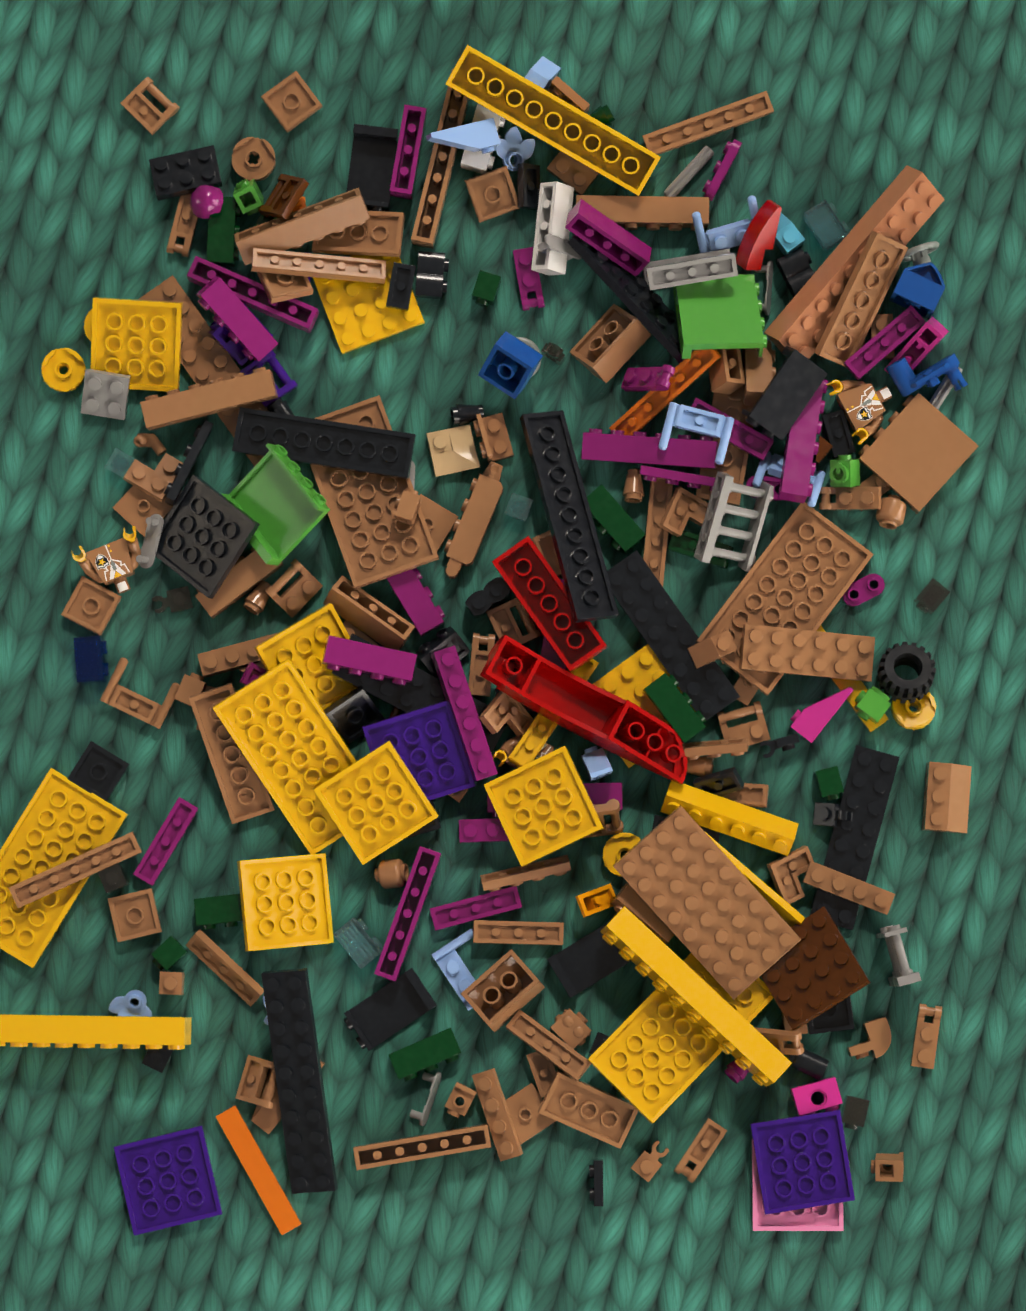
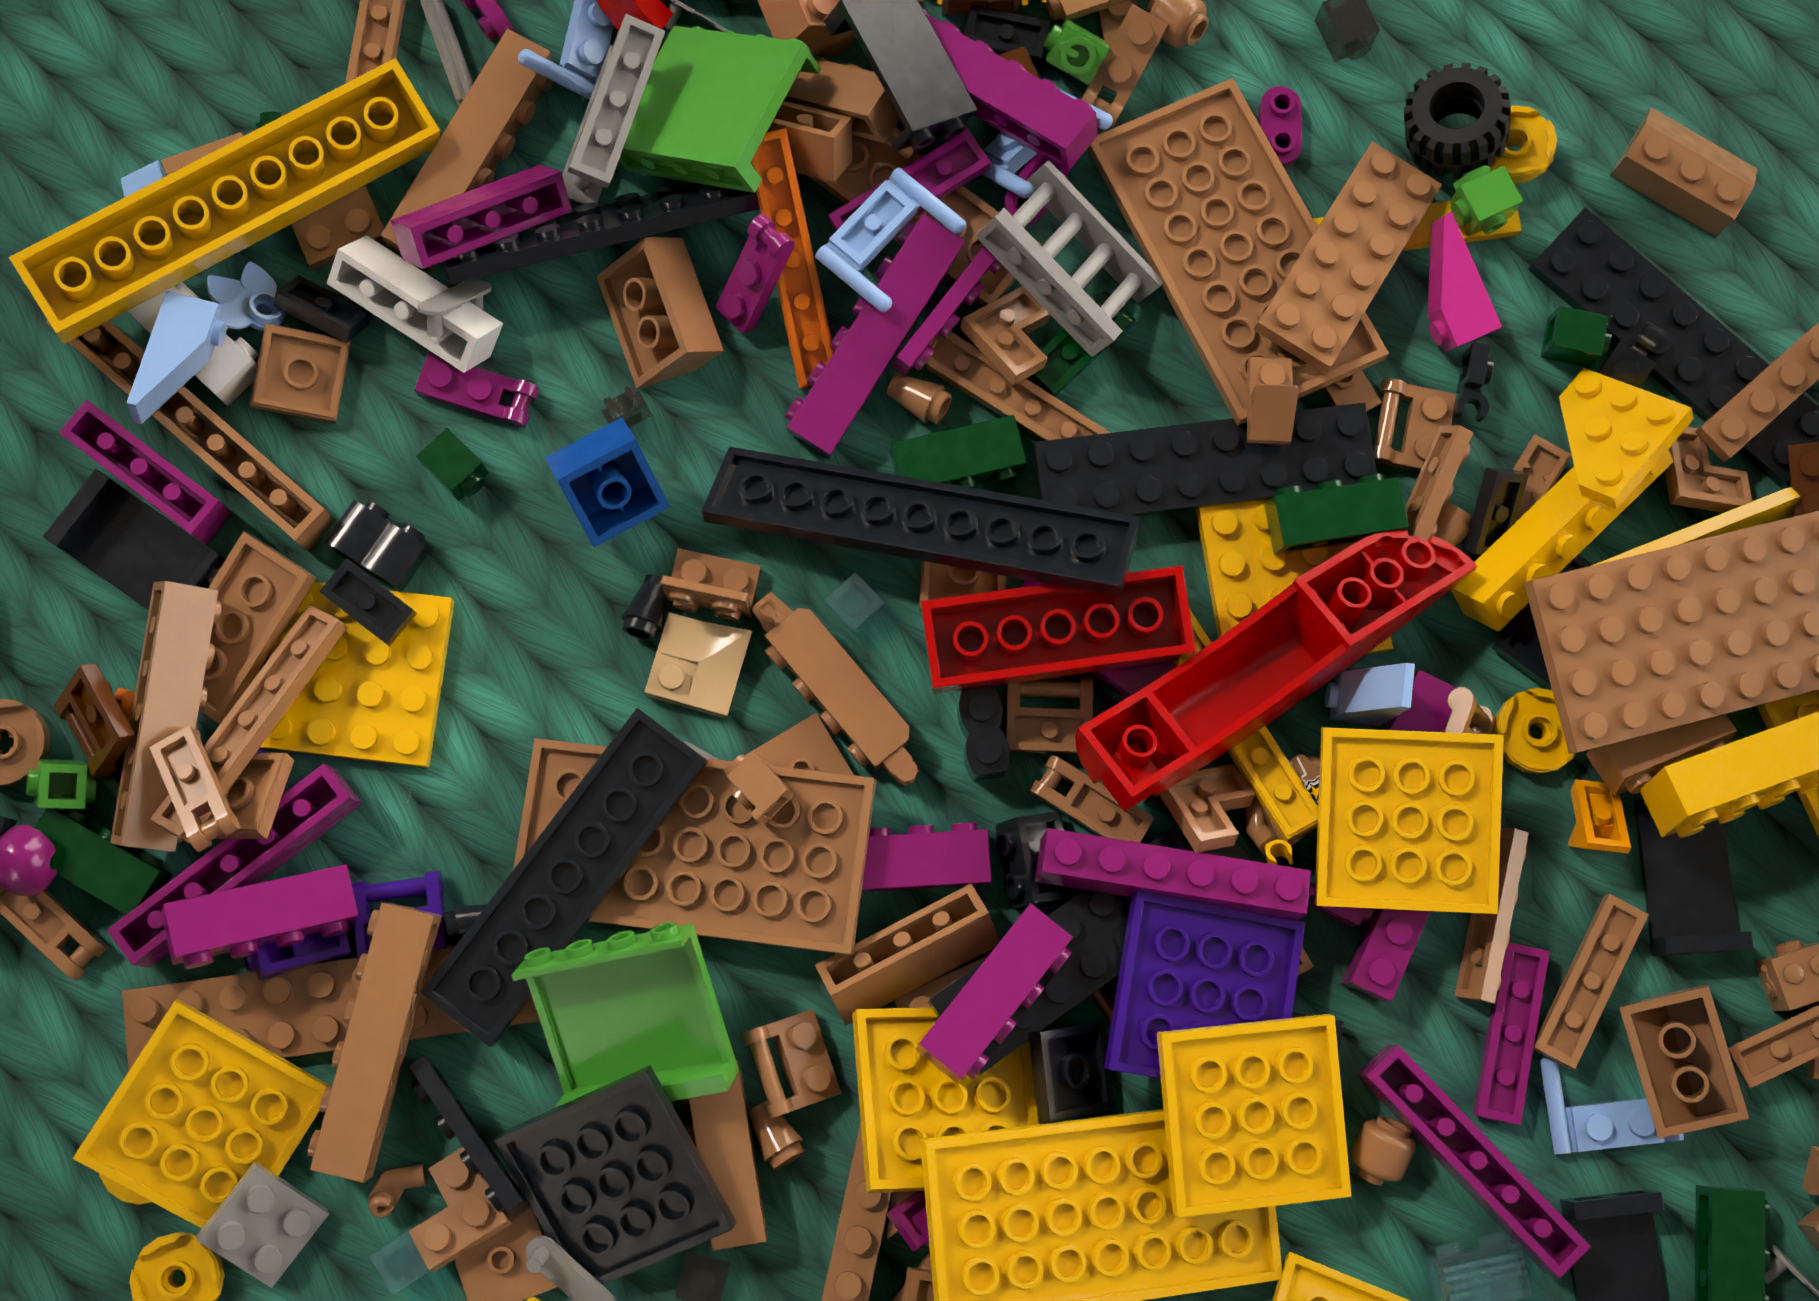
camera: 70 degrees left, 5 degrees down
(276, 260) = (193, 787): none -> plate
(783, 820) = (1617, 433): none -> yellow plate

